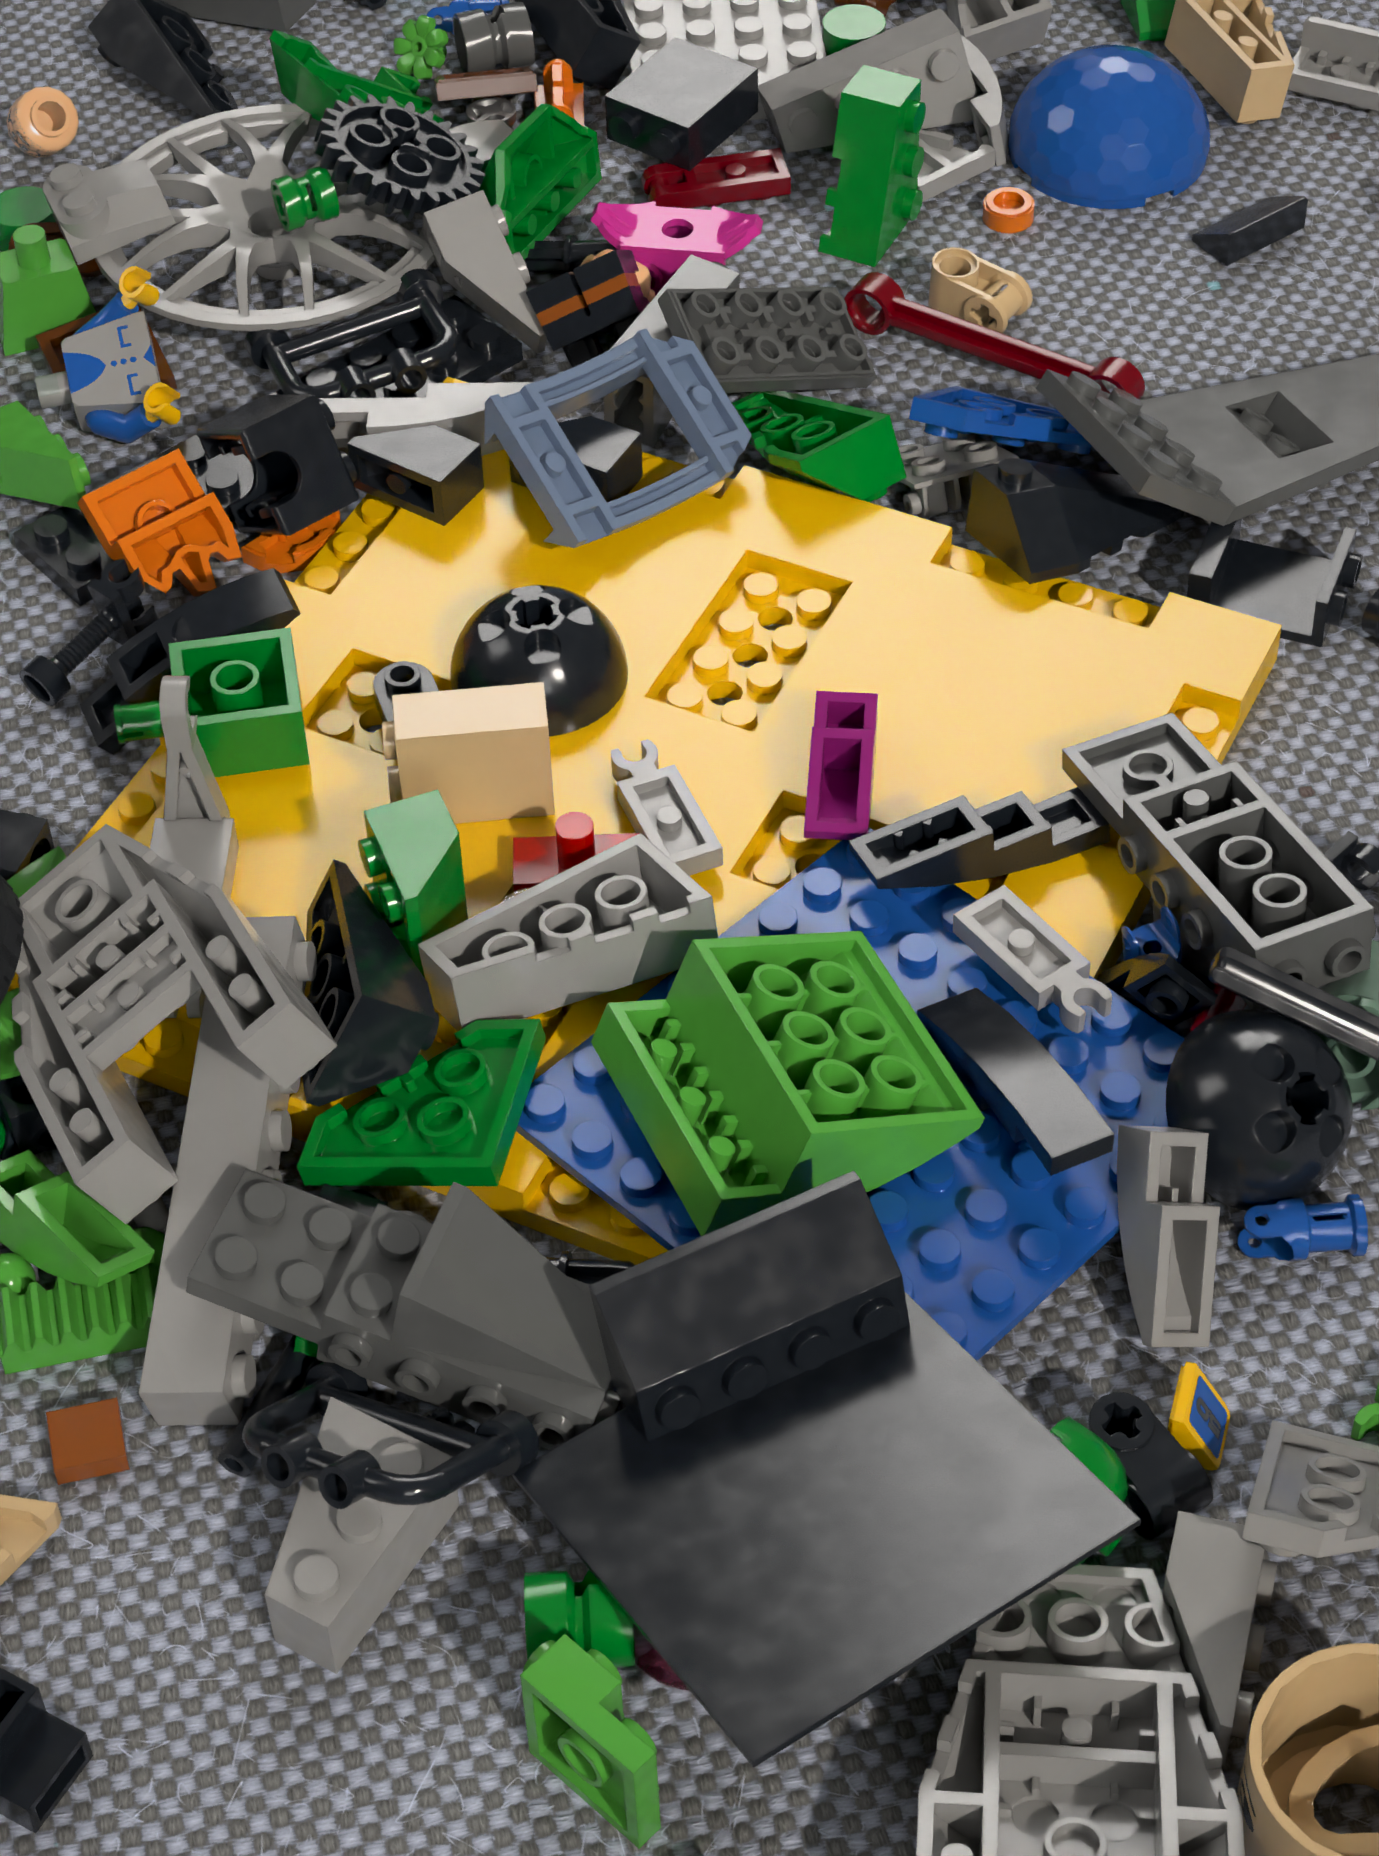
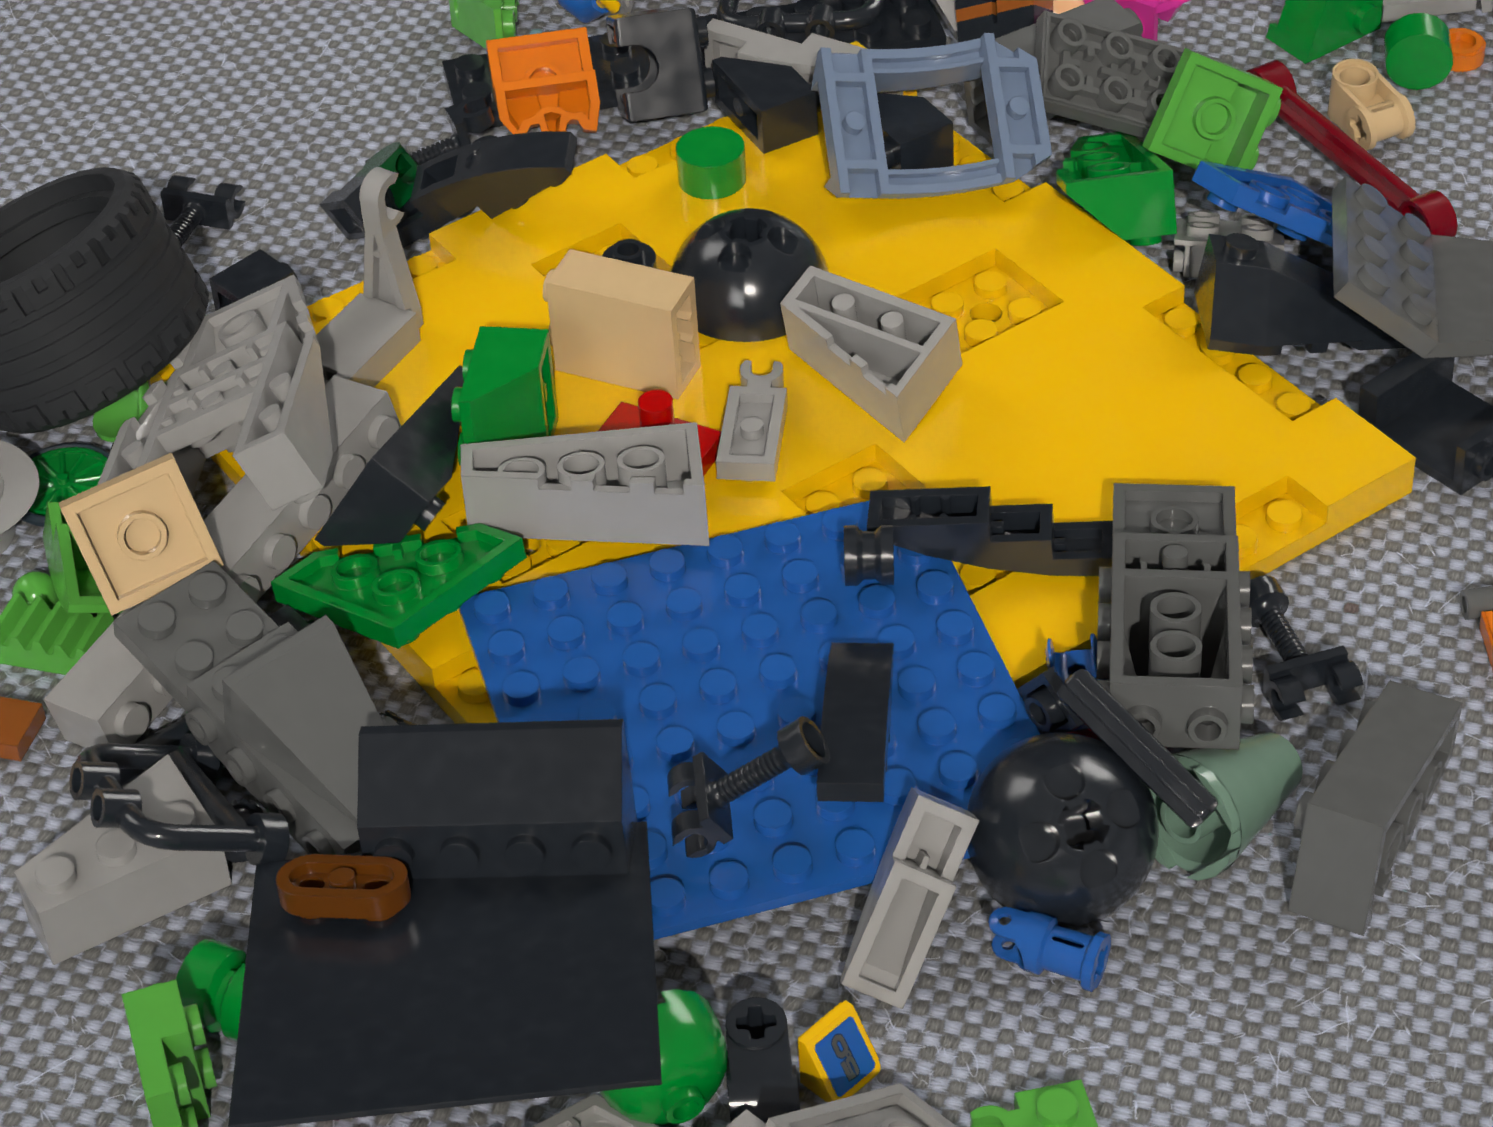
camera: 30 degrees right, 5 degrees down
(64, 703) = (344, 205): none -> leg
(158, 1170) = (140, 533): none -> tan plate
(242, 698) = (479, 228): green brick -> none
(293, 551) = (645, 135): orange tile -> none
(410, 553) = (711, 162): none -> green piece
(650, 1460) = (343, 886): none -> reddish brown plate
(728, 692) = (872, 346): none -> light grey wedge
(781, 1073) = (680, 637): bright green slope -> none
(841, 765) = (924, 434): magenta slope -> none
(873, 348) = (1213, 114): none -> bright green plate
(896, 907) = (868, 555): none -> black wheel
(907, 1202) = (712, 789): none -> black bar
(986, 222) = (1418, 51): none -> green piece
(1031, 956) = (952, 633): light grey plate -> none

